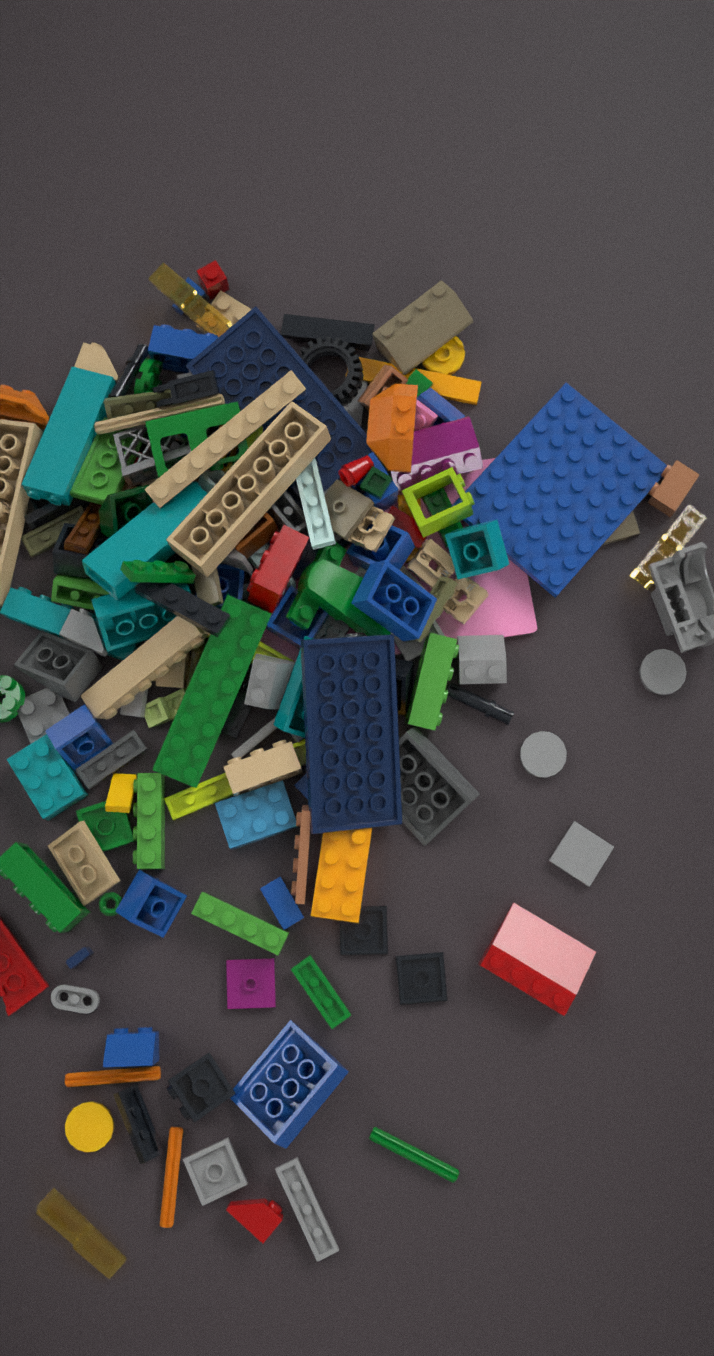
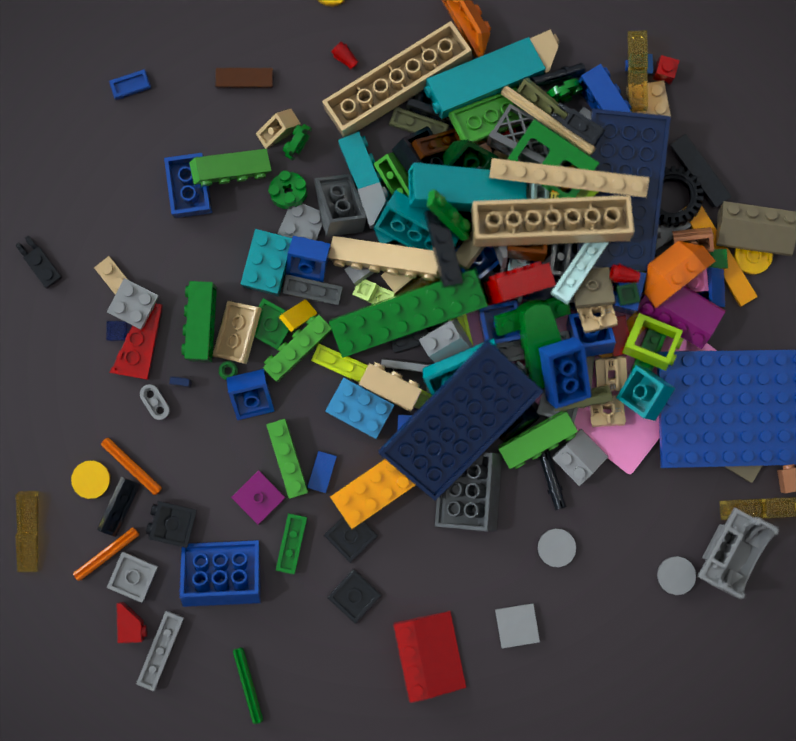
camera: 45 degrees right, 5 degrees up
(131, 1048) = (157, 462): blue slope -> none
(300, 864) = (354, 462): nougat plate -> none

